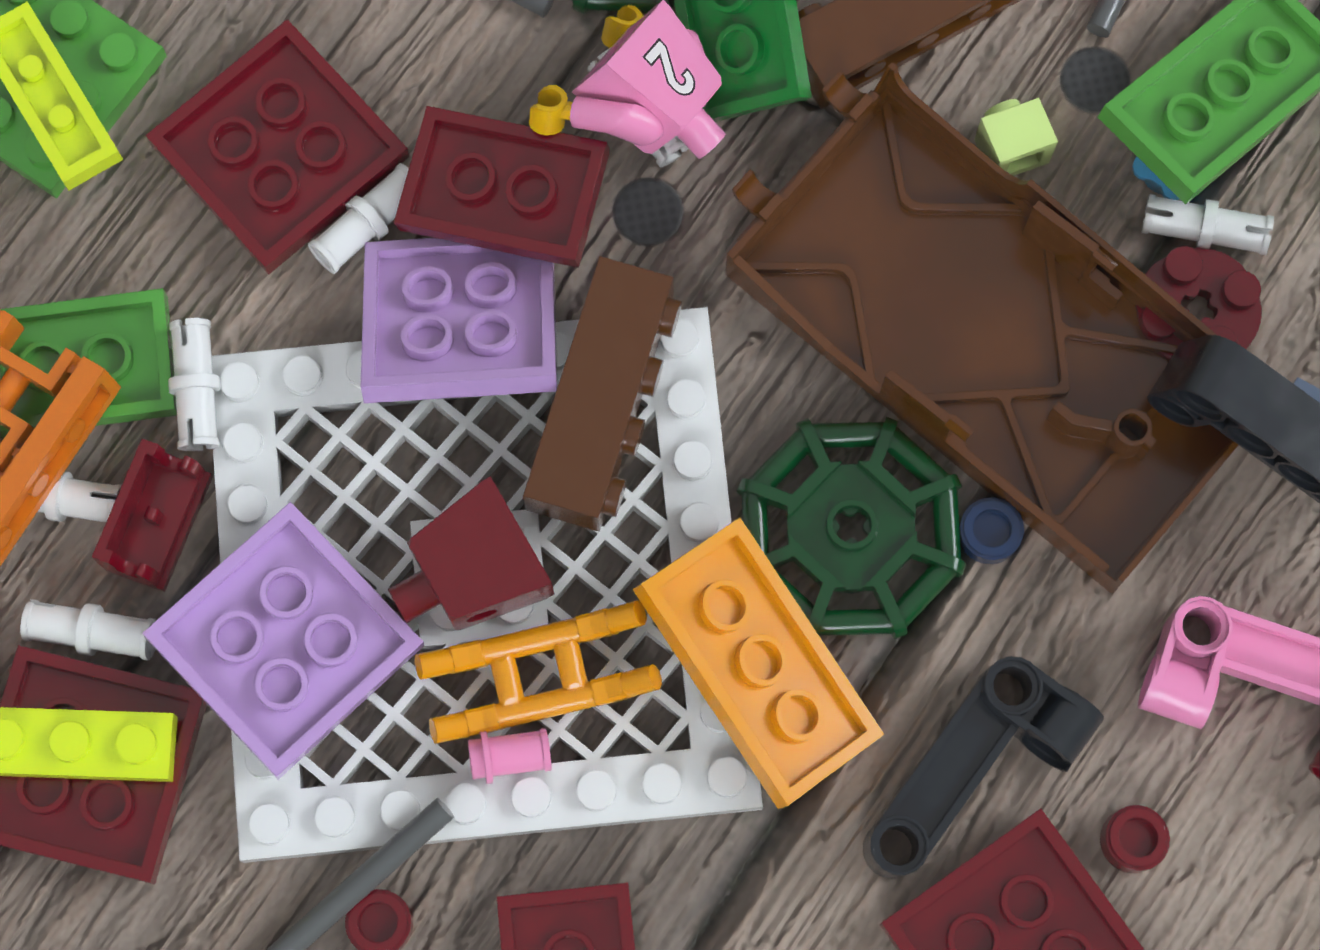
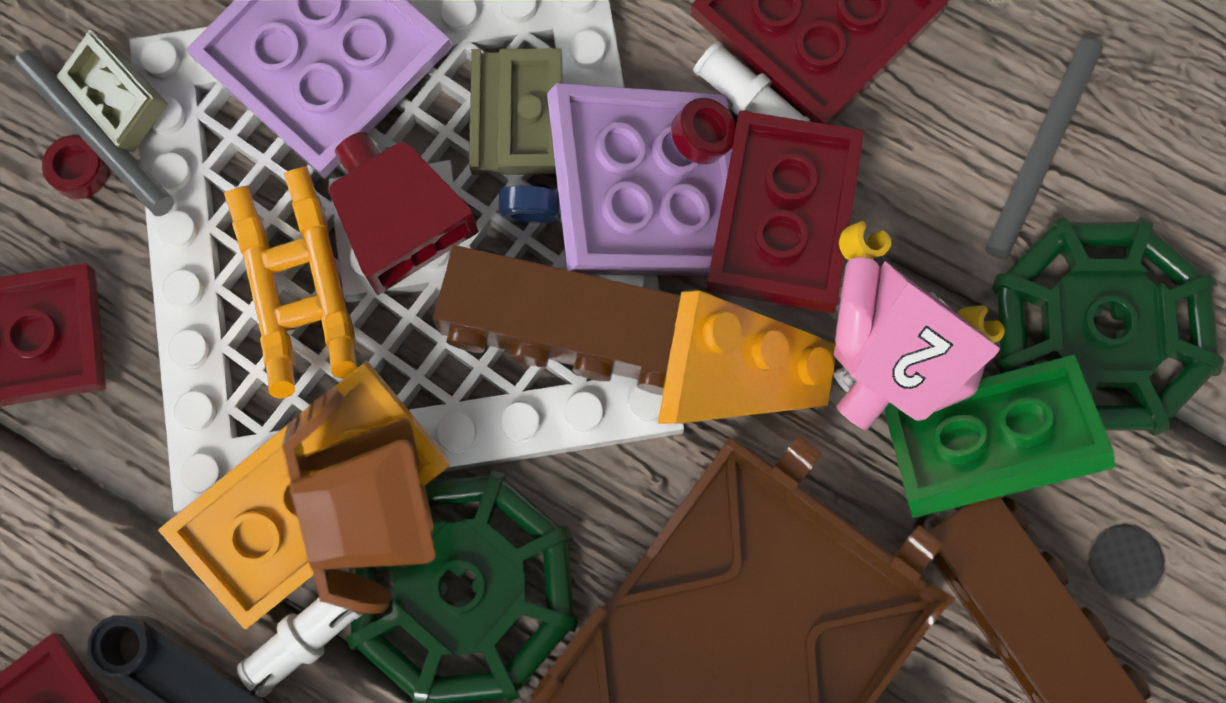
camera: 90 degrees right, 0 degrees up
(304, 871) = (112, 91): none -> plate
(370, 444) = (512, 111): none -> olive plate
(409, 260) = (703, 131): none -> dark red tile
(474, 433) = (529, 204): none -> dark blue tile
(509, 754) = (215, 261): bright pink pin -> none
(661, 236) = (740, 364): none -> light orange wing
(787, 578) = (359, 506): none -> dark orange piece
(896, 676) = (297, 642): none -> white pin

